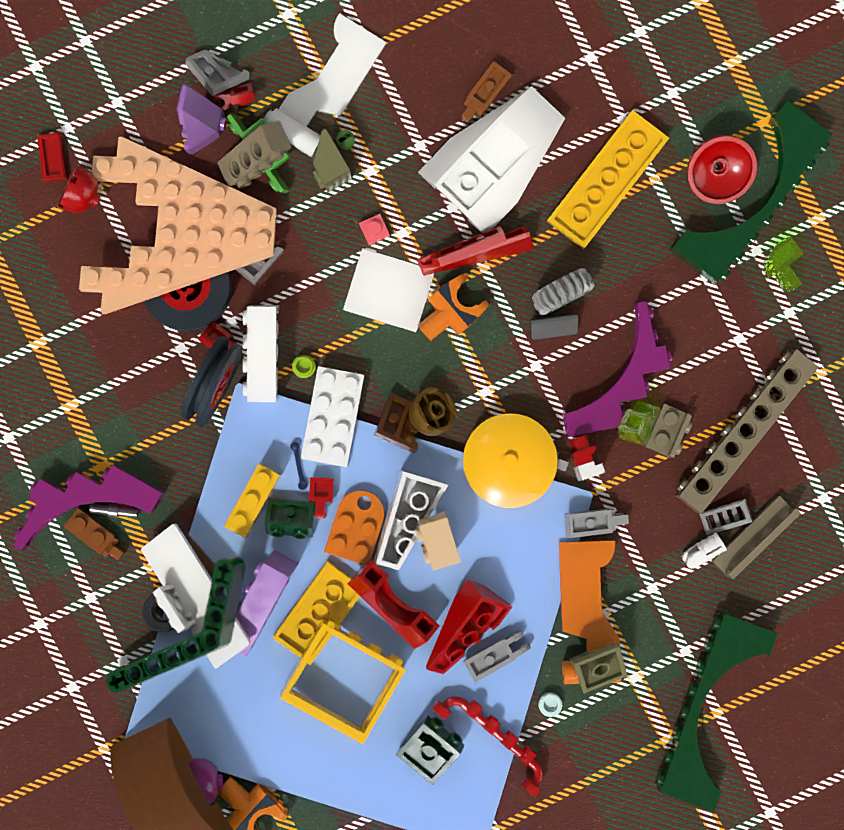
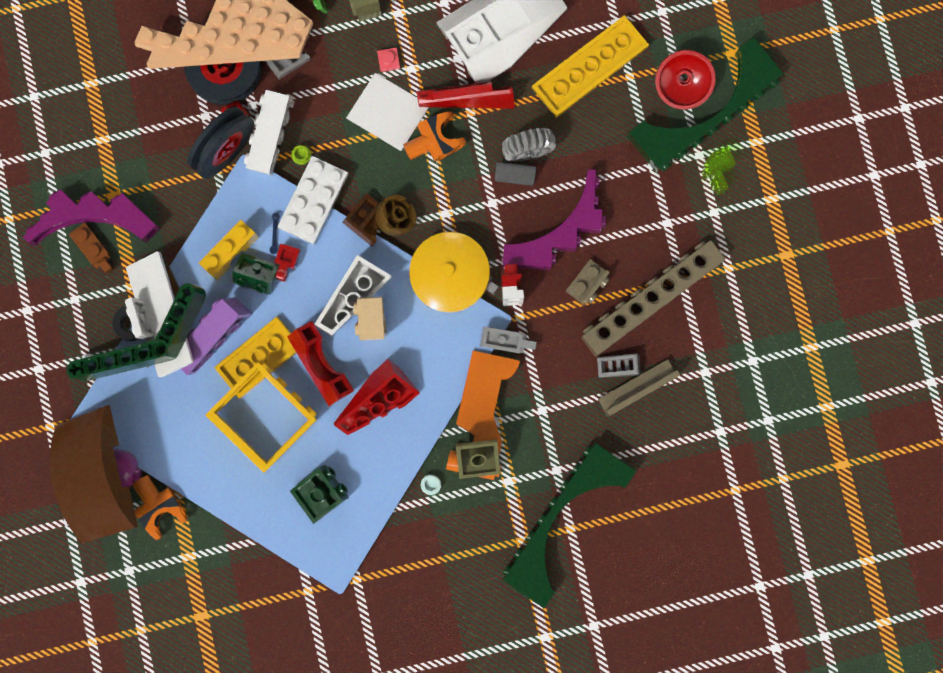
camera: 20 degrees right, 5 degrees down
(114, 510) = (113, 232): flat silver bar -> none
(355, 529) = (307, 297): orange plate -> none
(494, 656) = (393, 430): light grey hinge -> none
(508, 740) = (386, 502): red bar -> none
(638, 423) = (563, 268): clear neon green brick -> none
(703, 551) = (592, 388): white hinge -> none

